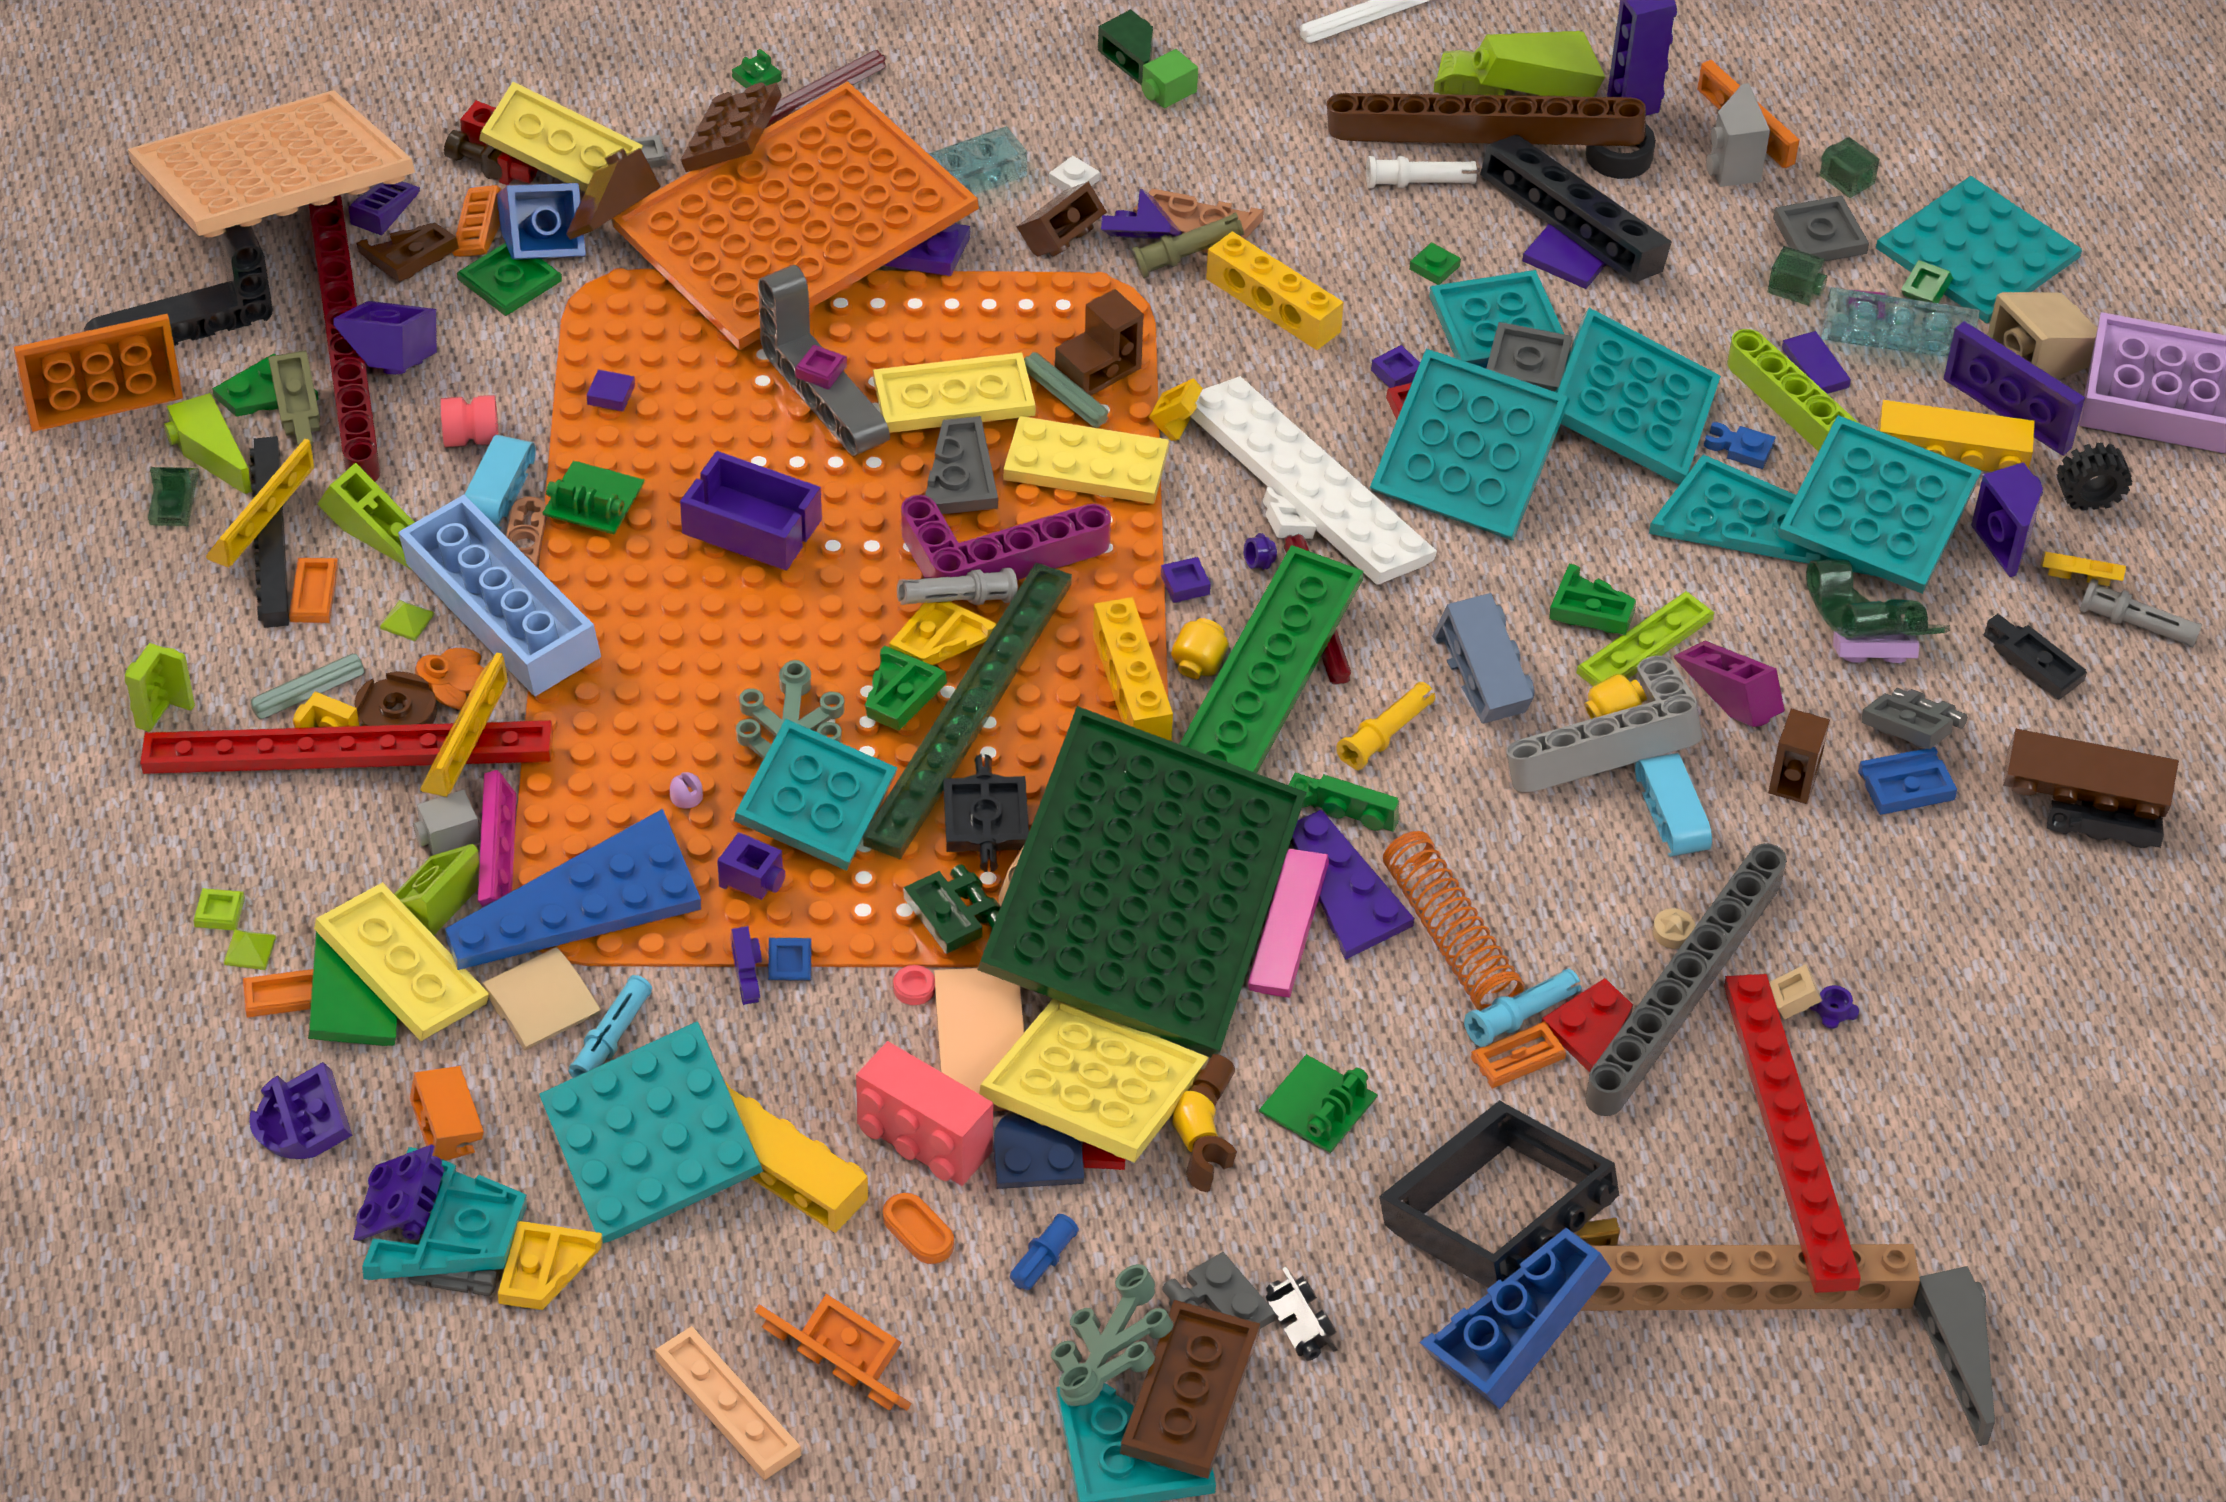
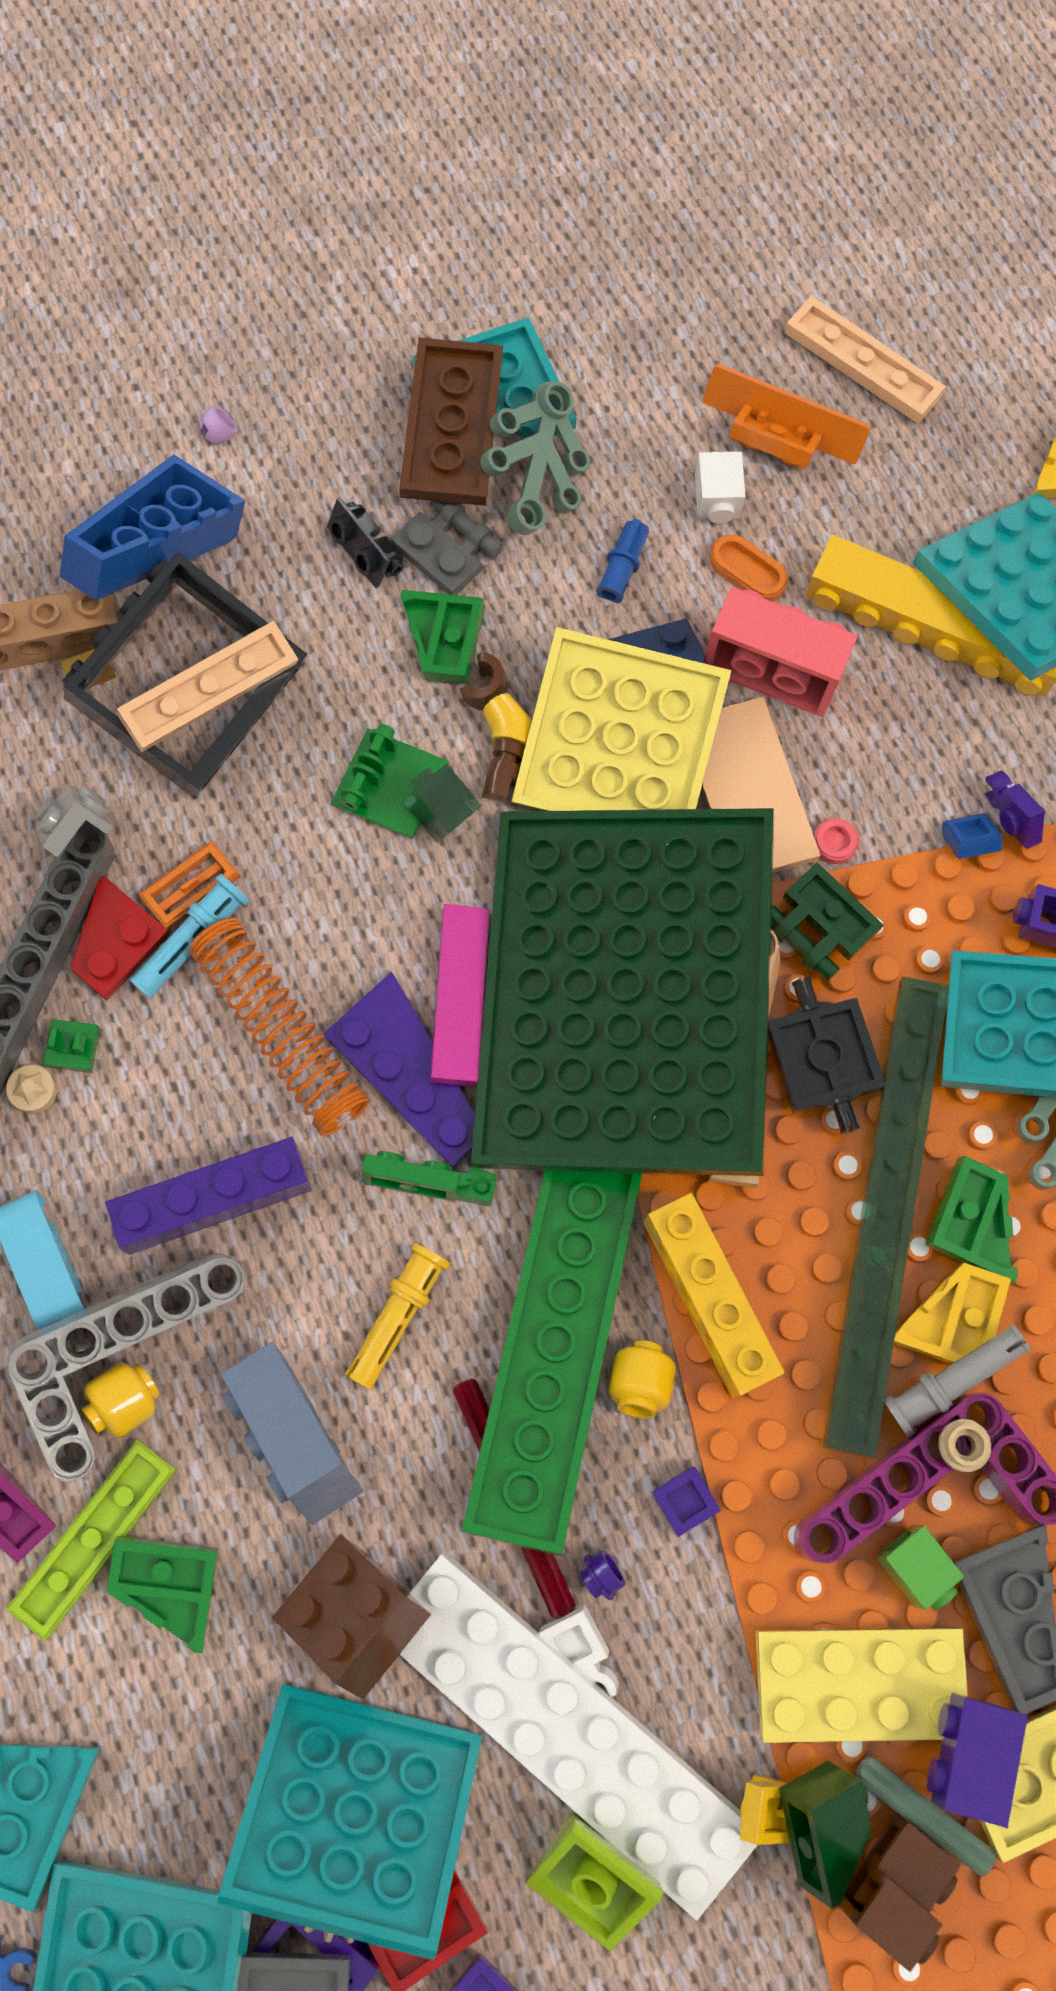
camera: 165 degrees right, 25 degrees up
(926, 1296) = (719, 486): none -> white brick
(972, 537) = (979, 1442): none -> tan plate
(1023, 498) = (921, 1568): none -> bright green brick
(1024, 390) = (977, 1759): none -> dark purple brick
(1138, 387) = (826, 1829): none -> dark green slope
(1240, 1216) = (444, 632): none -> green wing
(1274, 1059) = (440, 801): none -> clear green brick
(1303, 404) = (594, 1883): none -> lime slope
(1438, 1453) = (217, 425): none -> lavender hinge
(1454, 546) = (351, 1617): none -> reddish brown brick
(1479, 1157) = (206, 686): none -> light nougat plate
(1527, 817) = (208, 1196): none -> dark purple brick
(1619, 1095) = (63, 817): none -> light grey bracket
(1637, 952) = (71, 1046): none -> green tile

